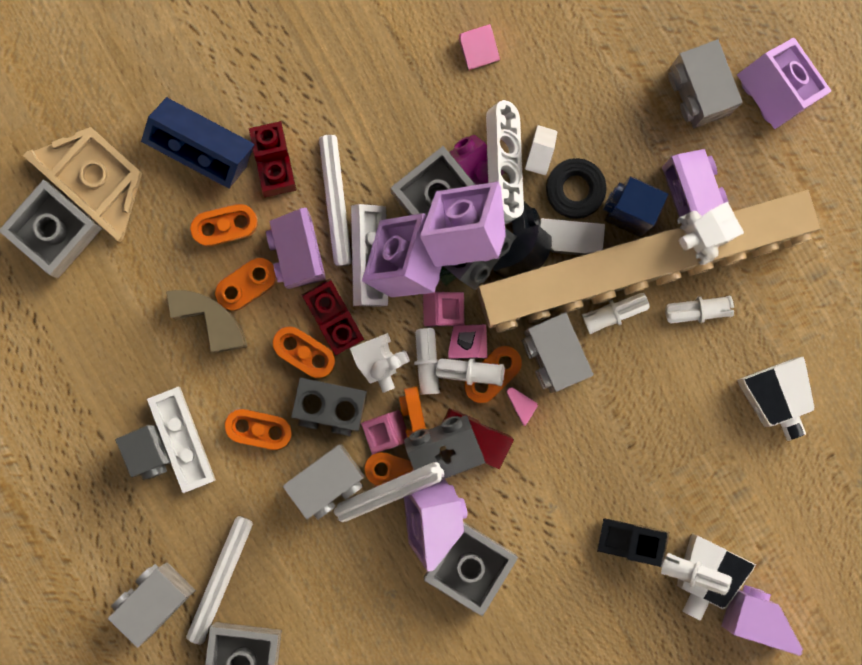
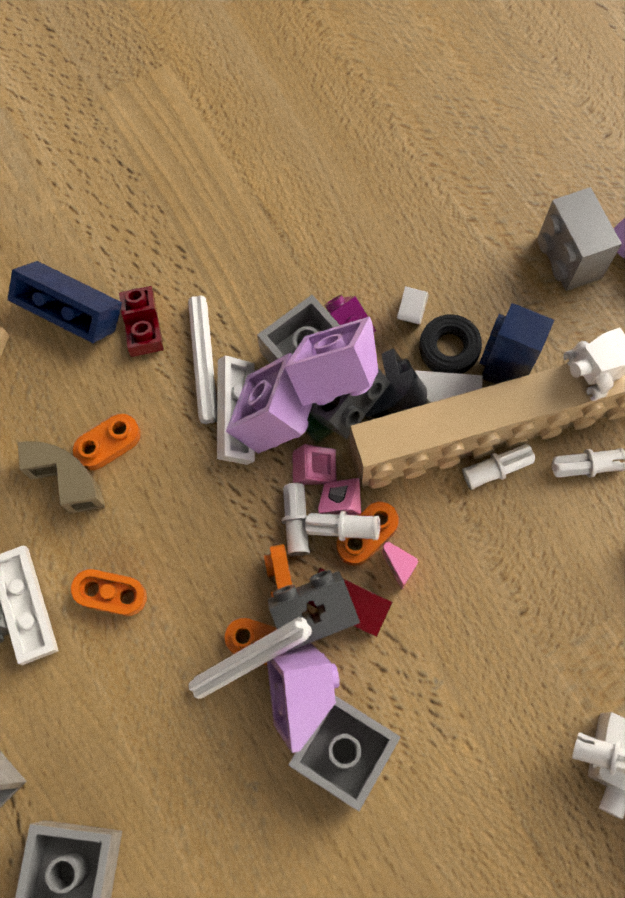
camera: 10 degrees right, 15 degrees down
(219, 580) = (53, 767): white axle -> none
(224, 225) = (88, 382): orange plate -> none
(296, 249) = (159, 401): lavender slope -> none
(304, 353) = (164, 510): orange plate -> none
(325, 481) = (175, 648): light grey brick -> none
(331, 397) = (190, 556): dark grey brick -> none
(332, 317) = (196, 473): dark red slope -> none
(377, 361) = (241, 516): white piece -> none
(385, 431) = (248, 595): bright pink slope -> none
(479, 47) = (348, 216): bright pink slope -> none
(504, 125) = (376, 301): white beam -> none
(557, 353) = (438, 504): light grey brick -> none
(633, 542) = (536, 720): black brick -> none
(693, 182) = (571, 325): lavender slope -> none

